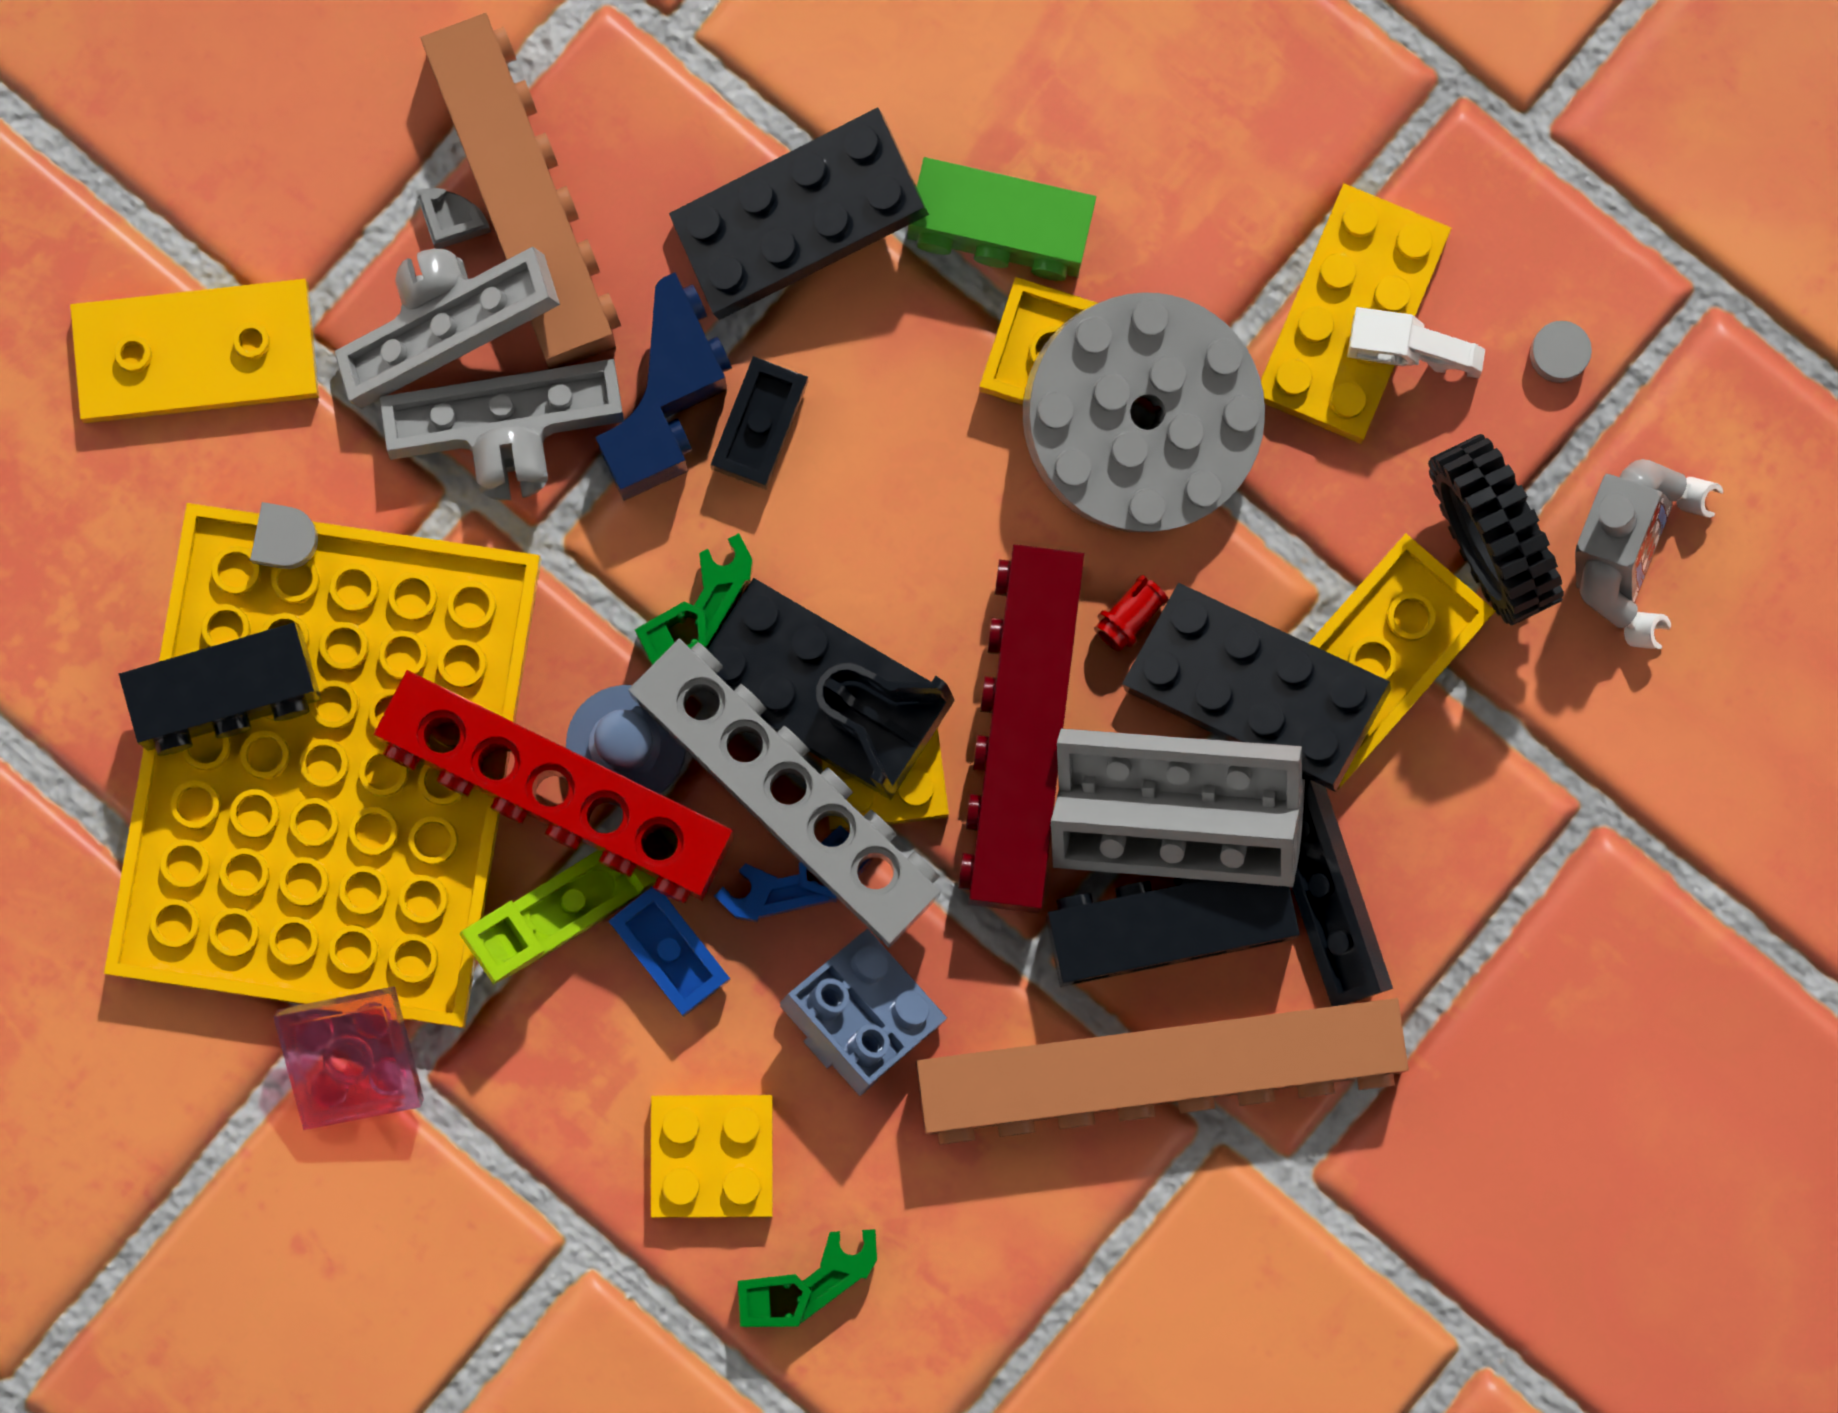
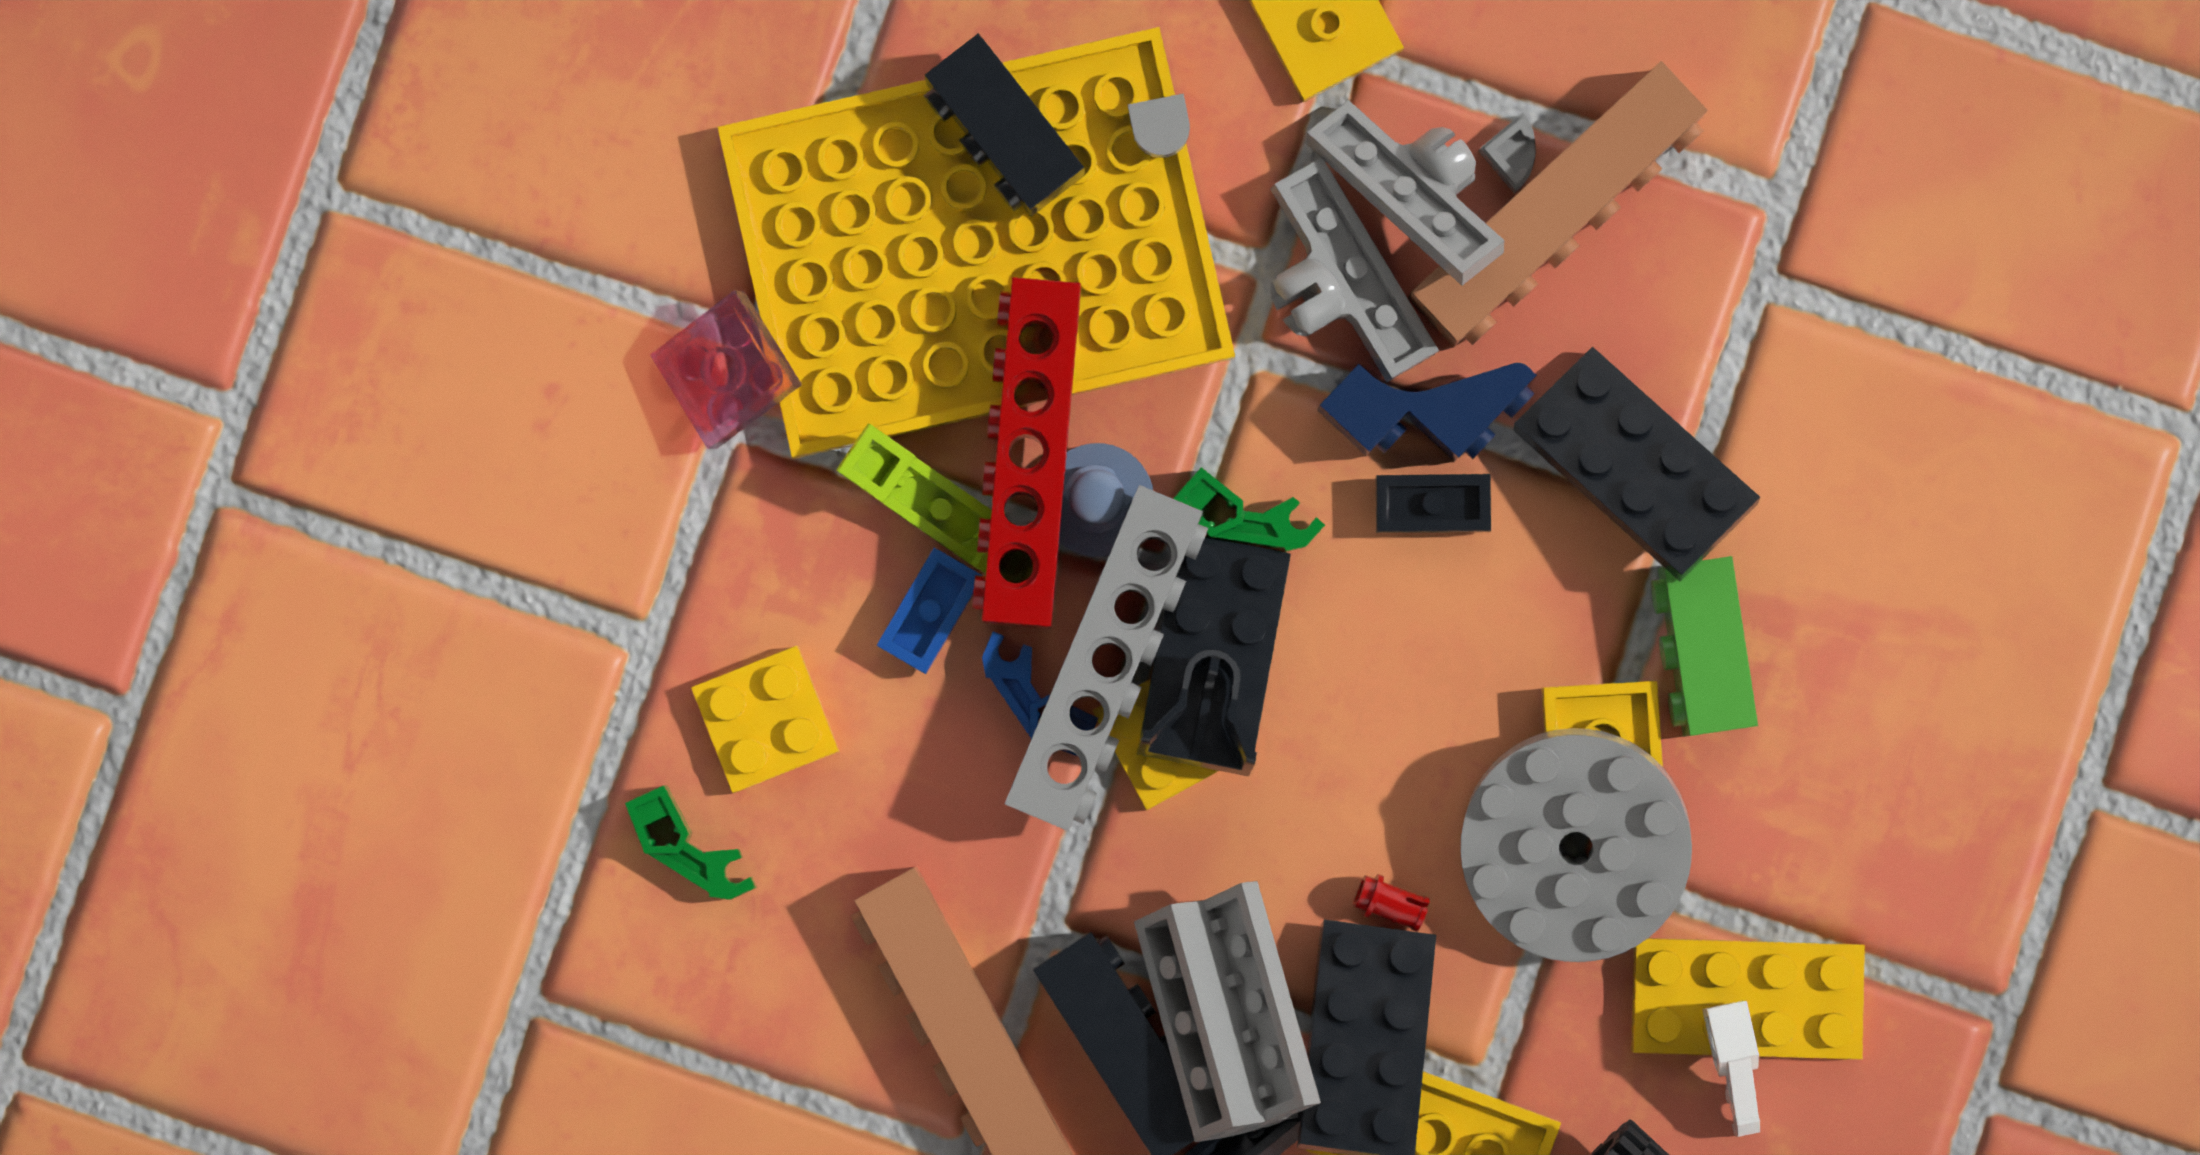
camera: 75 degrees right, 5 degrees up
(862, 1012) = (940, 802): sand blue plate -> none
(1025, 724) = (1249, 848): dark red brick -> none

